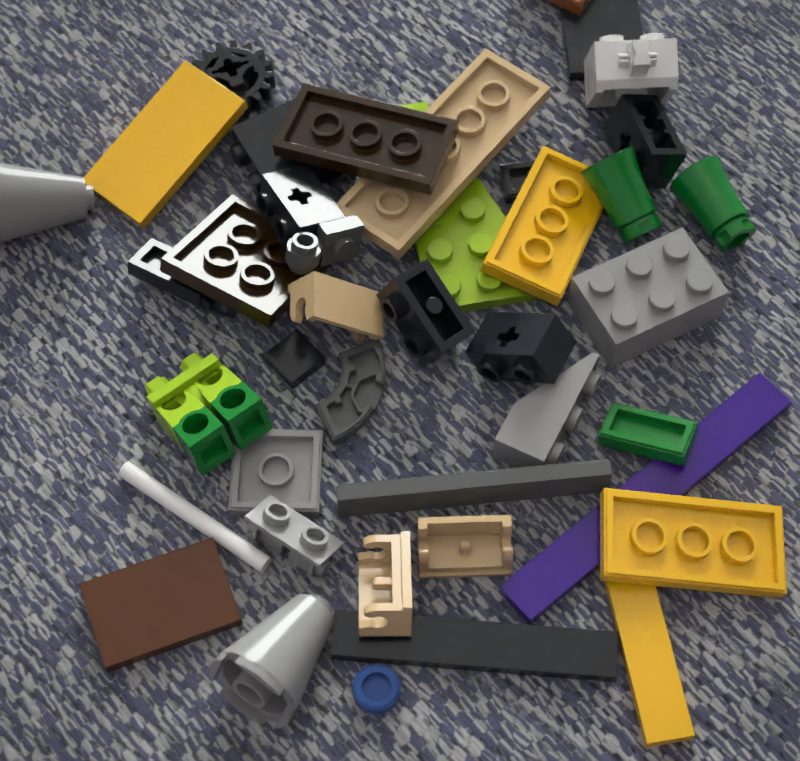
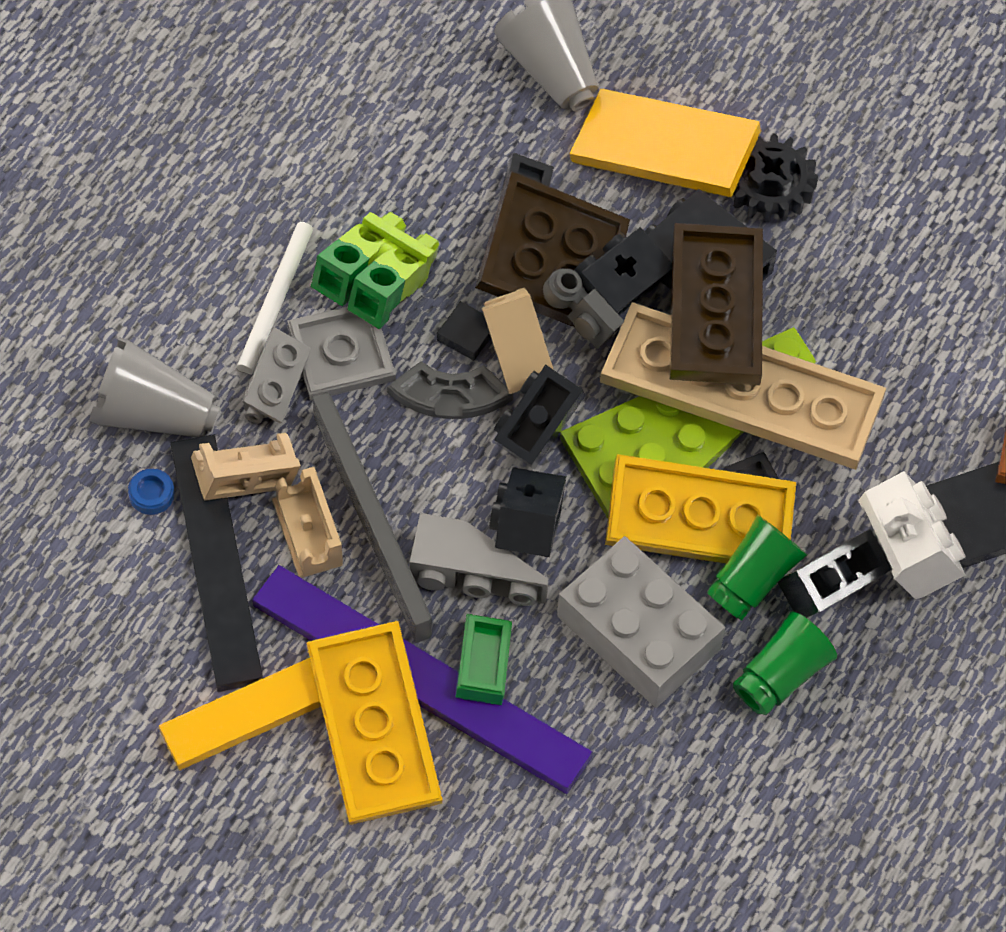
camera: 70 degrees right, 0 degrees up
(160, 604) = (181, 297): reddish brown tile -> none

